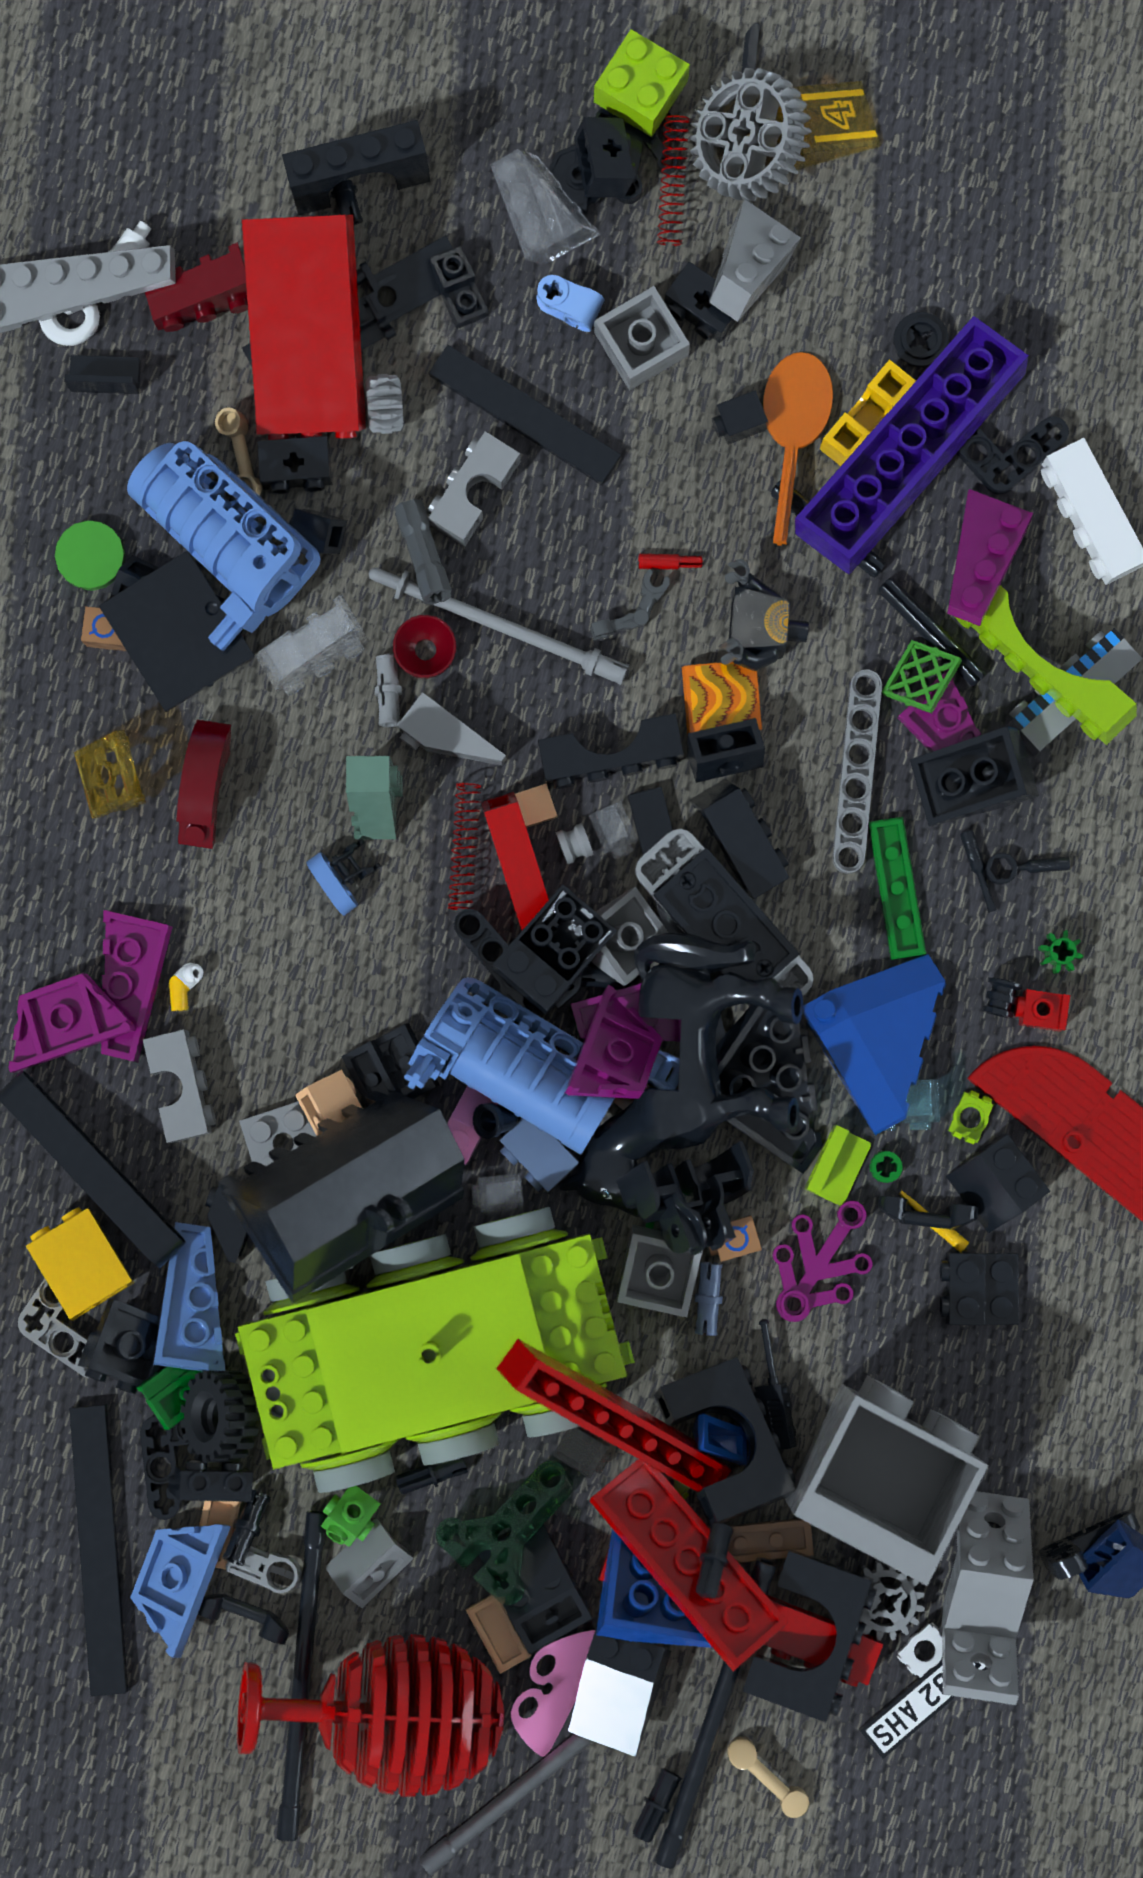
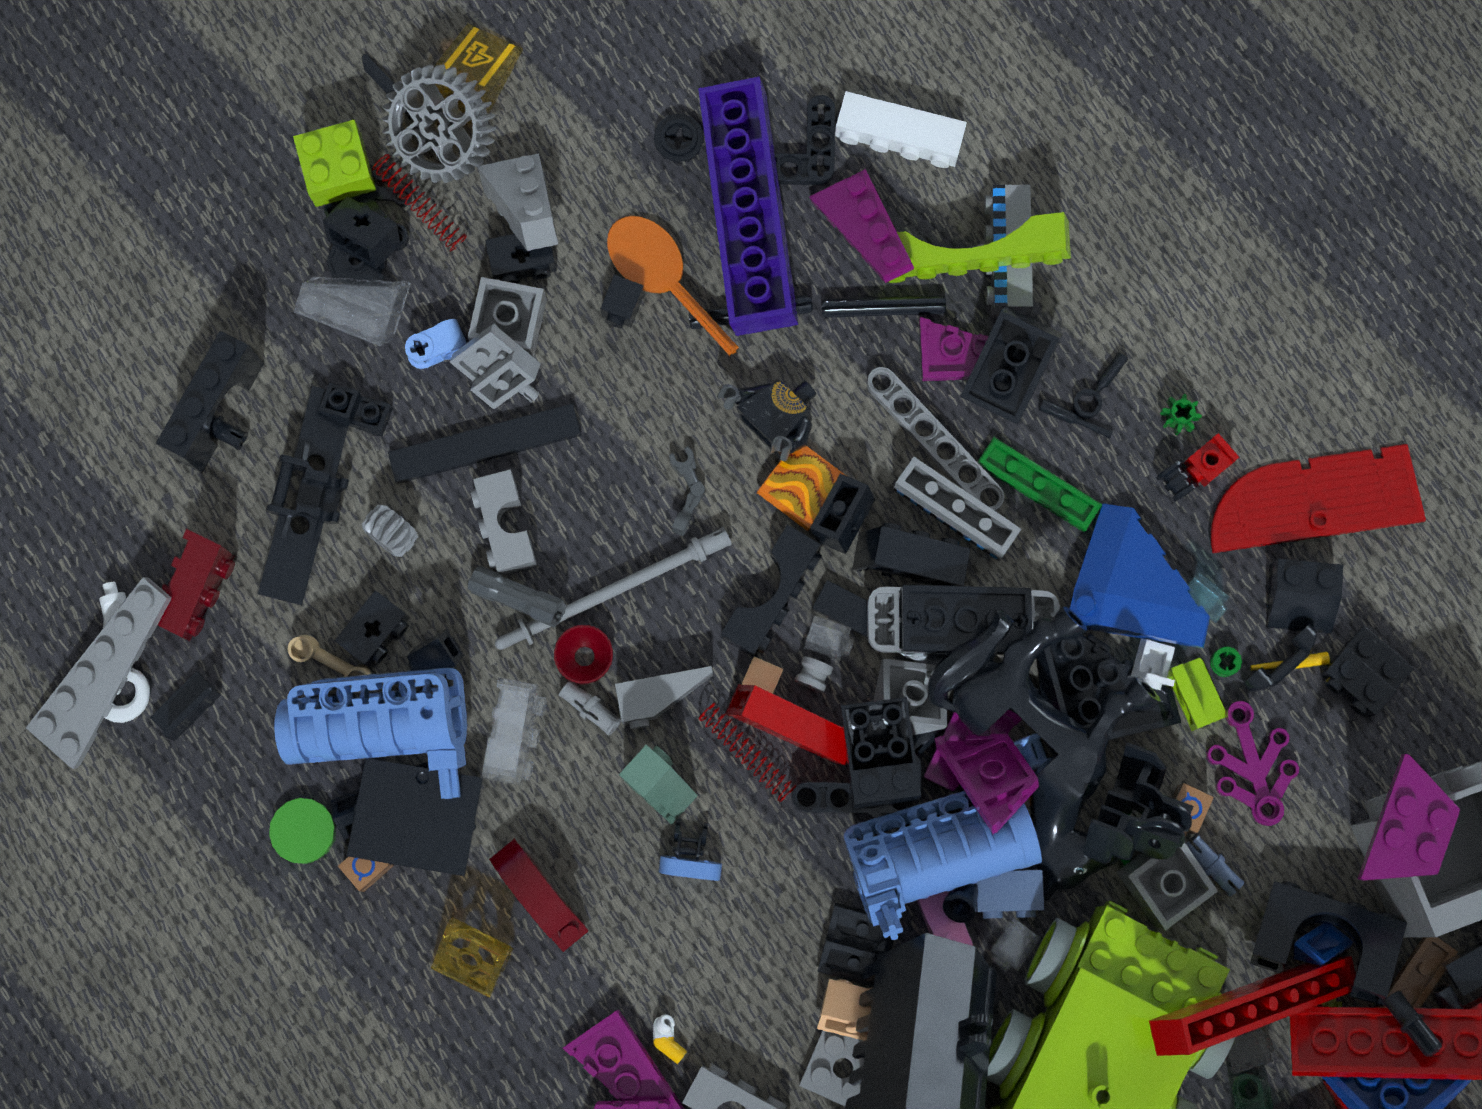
camera: 50 degrees left, 5 degrees down
(304, 326) = (286, 535): red brick -> none
(592, 366) = (497, 367): none -> light grey plate
(668, 561) = (675, 437): red pin -> none
(776, 1398) = (1323, 879): black piece -> none
(813, 838) = (956, 509): none -> light grey brick
(828, 1108) = (1153, 663): none -> white bracket
(865, 1420) = (1411, 827): none -> magenta wing
(866, 414) = (699, 216): yellow arch -> none
(902, 666) = (901, 316): bright green window -> none
(984, 1107) = (1240, 558): lime piece -> none

